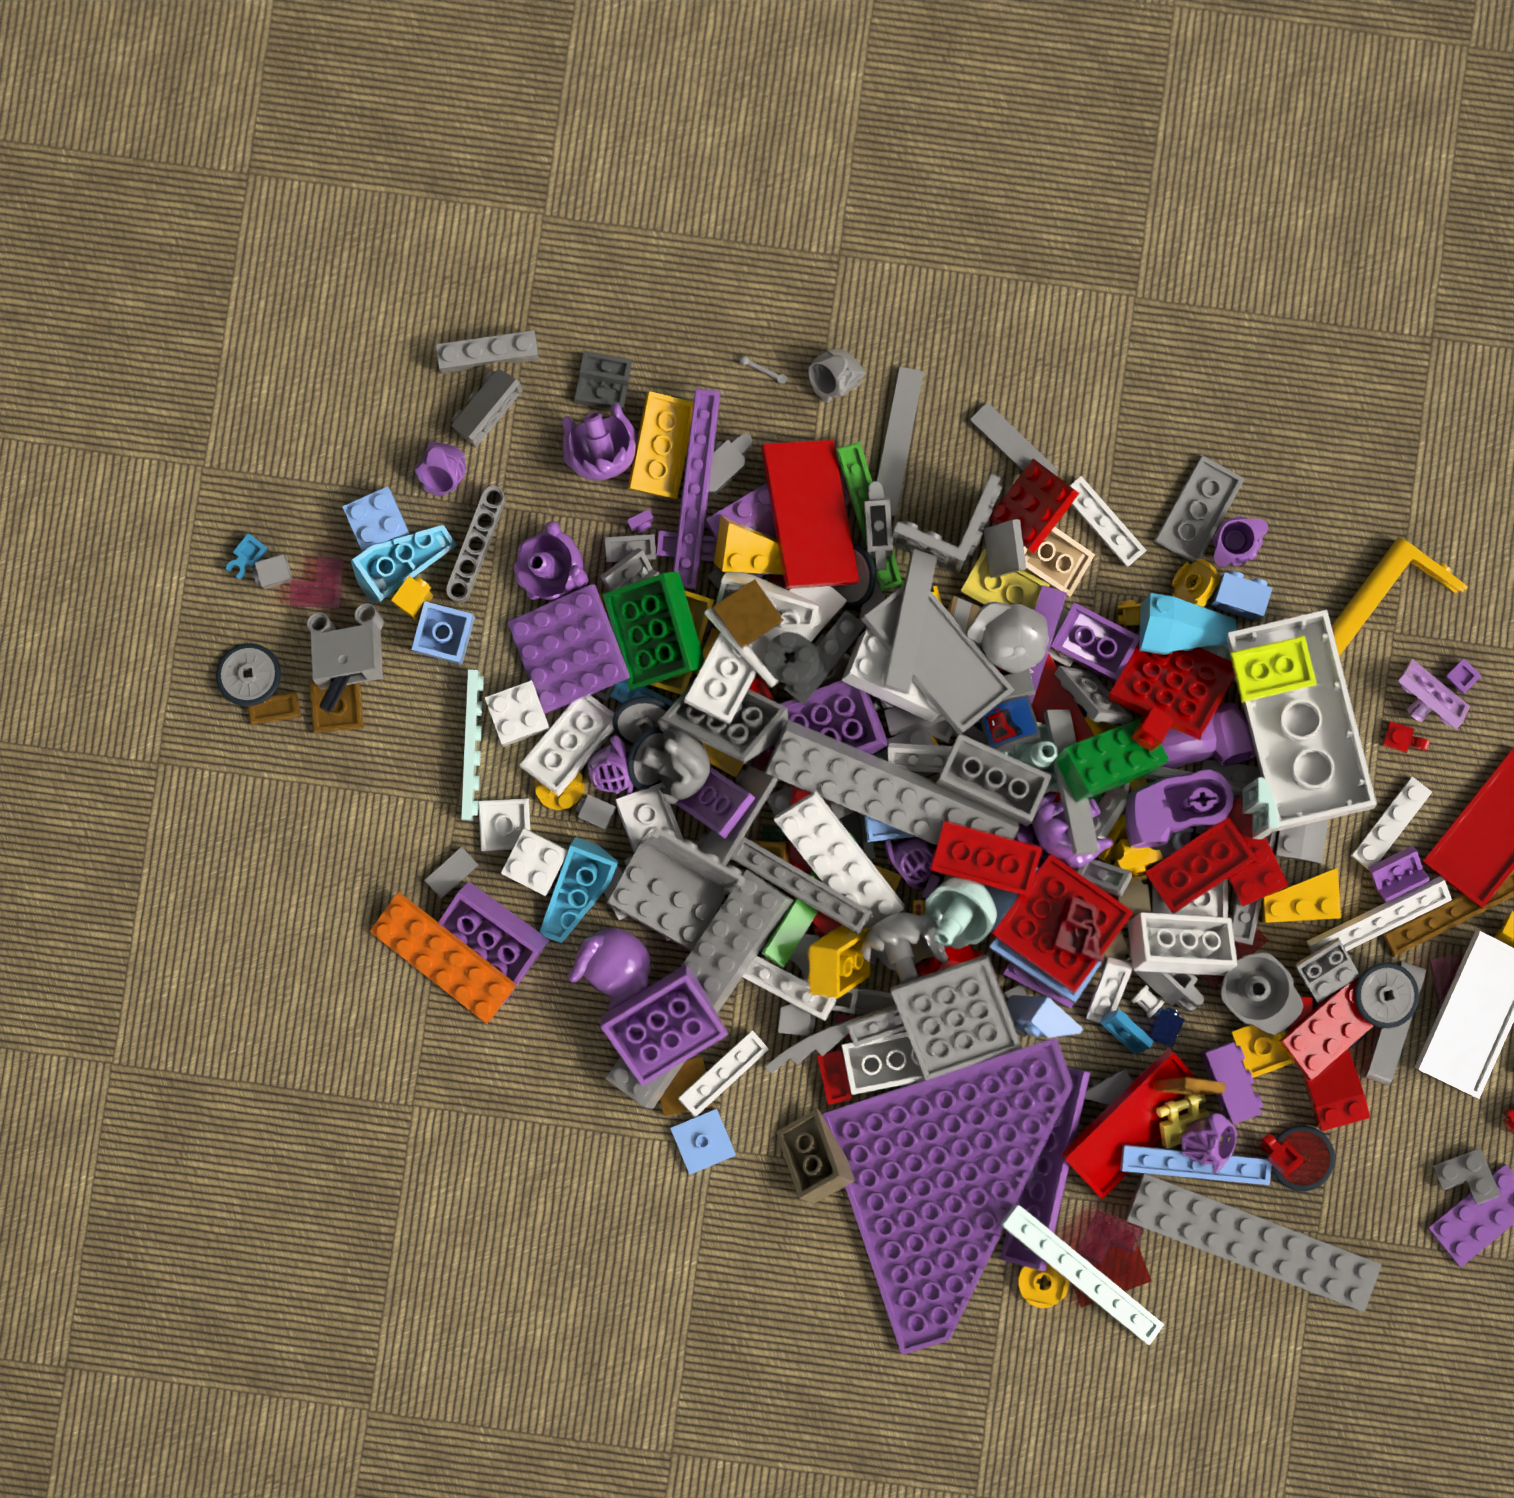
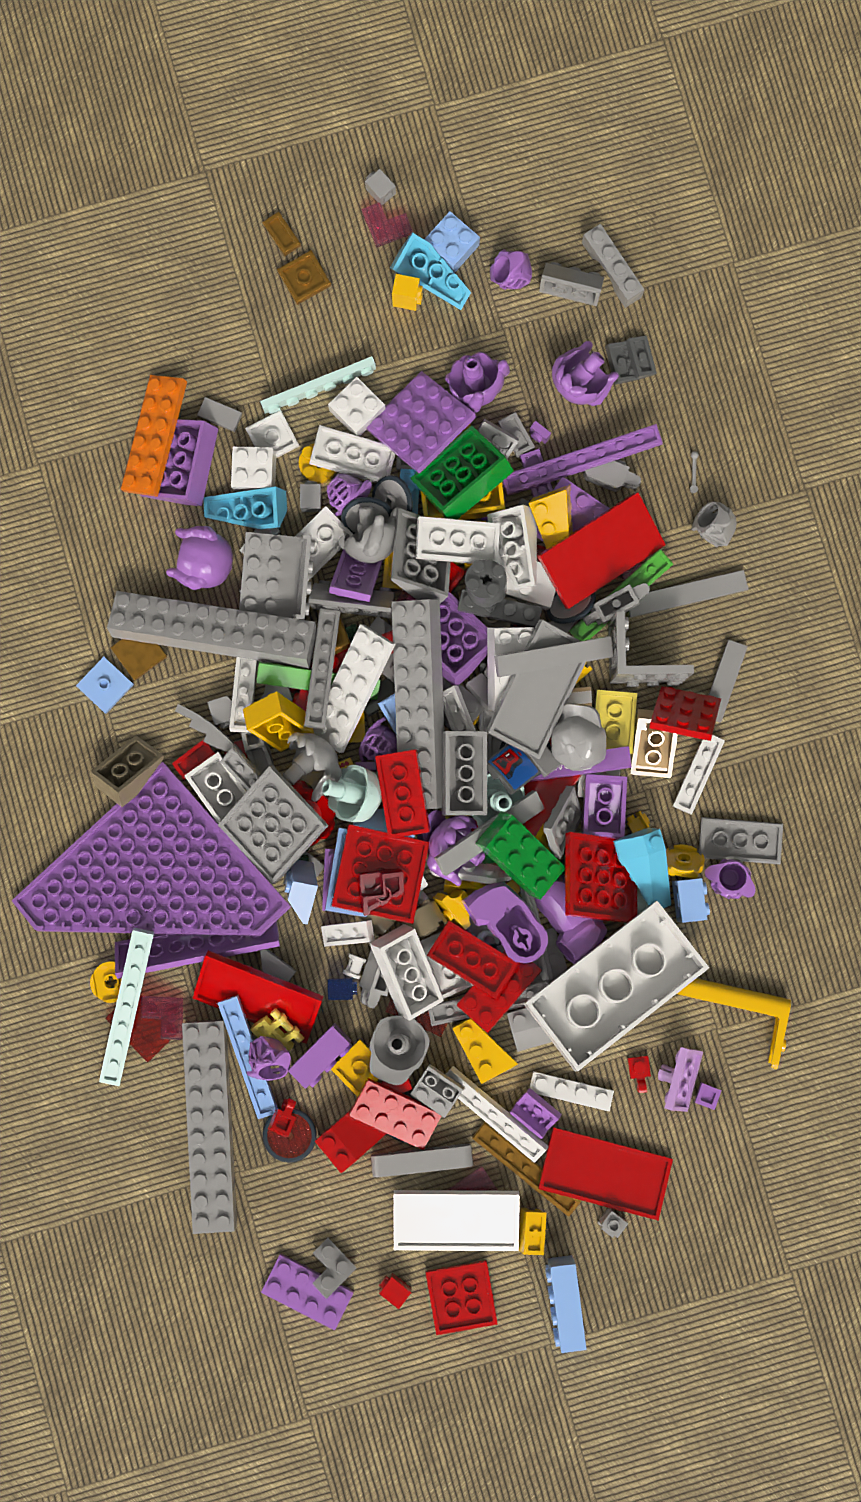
camera: 70 degrees right, 0 degrees up
(243, 659) = (297, 216): light grey wheel -> none
(248, 553) = (386, 162): dark azure plate -> none
(345, 654) = (342, 262): light grey piece -> none
(443, 633) = (391, 326): light blue brick -> none
(476, 532) = (475, 316): light grey beam -> none
(661, 446) = (601, 421): yellow plate -> none
(663, 1025) = (171, 612): medium lavender slope -> none
(723, 1073) = (159, 676): white plate -> none
(745, 652) = (478, 540): white bar -> none
(748, 614) = (504, 534): pearl gold tile -> none
(1005, 548) = (643, 706): light grey tile -> none
(1106, 876) = (431, 892): light grey plate -> none
(1126, 1031) = (324, 959): dark azure plate -> none
(1152, 728) = (557, 875): red brick -> none
(1189, 1086) = (301, 1025): pearl gold tile -> none
(1260, 803) = (538, 983): light aqua slope -> none
(1273, 669) = (645, 946): neon yellow tile -> none
(1370, 996) = (448, 1154): light grey wheel -> none

